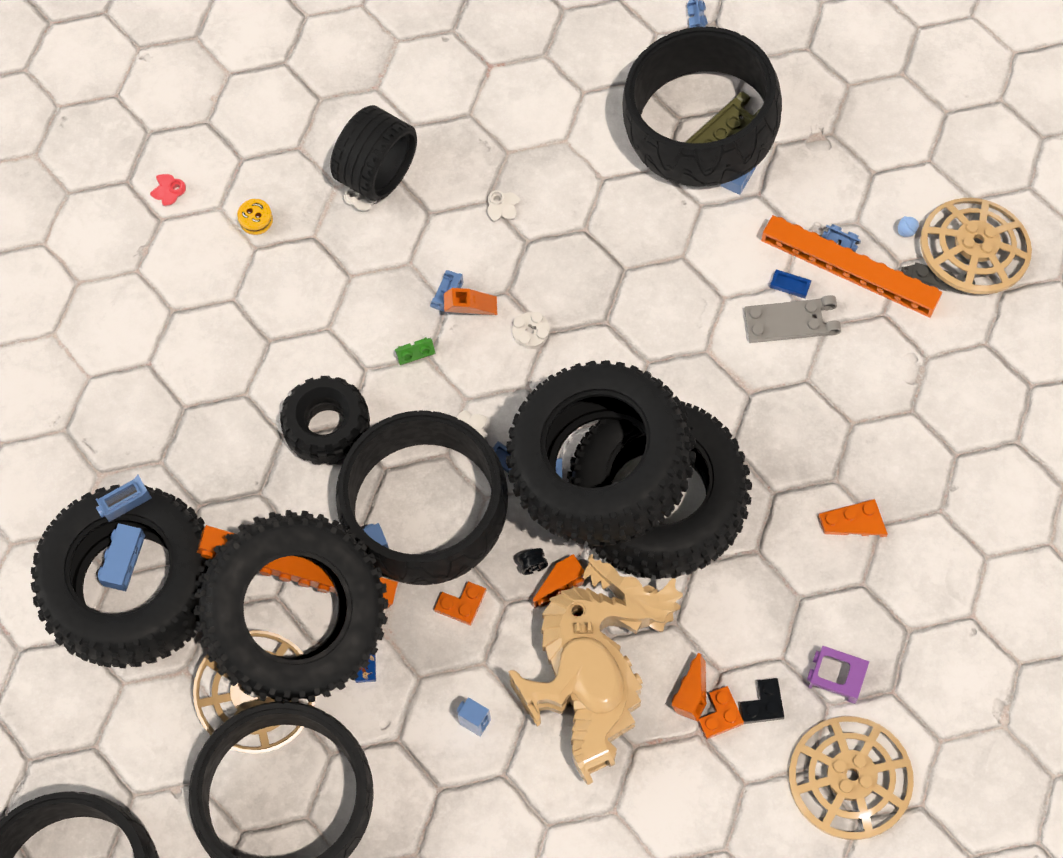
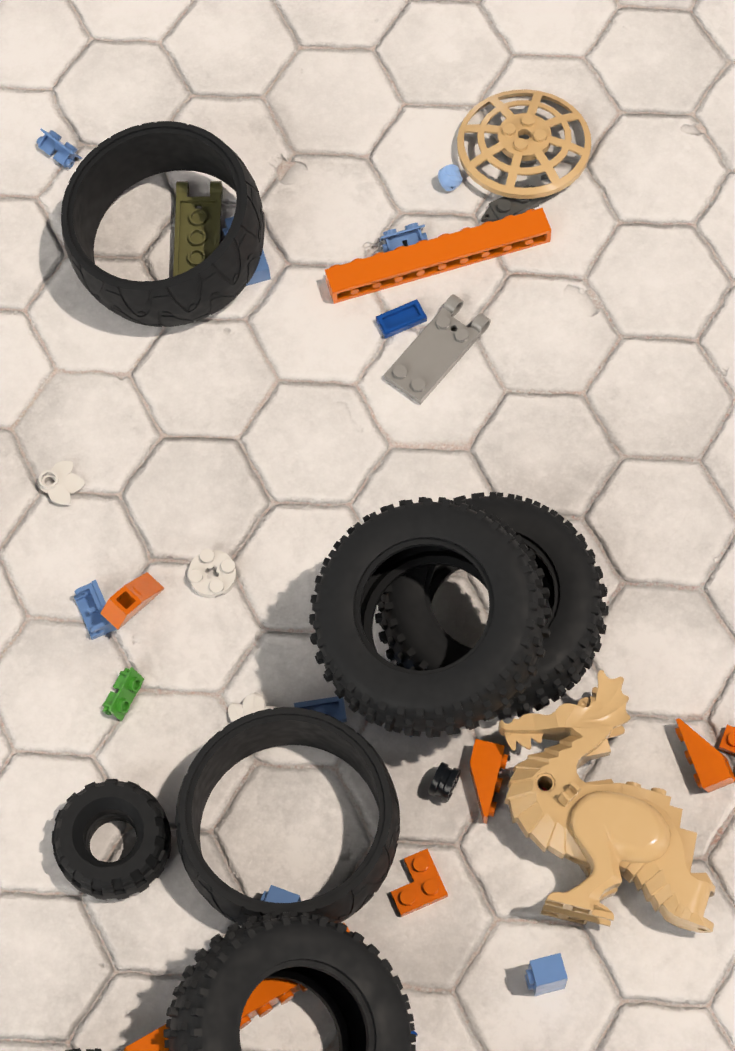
camera: 45 degrees left, 0 degrees up
(854, 519) = (675, 475): orange wing -> none

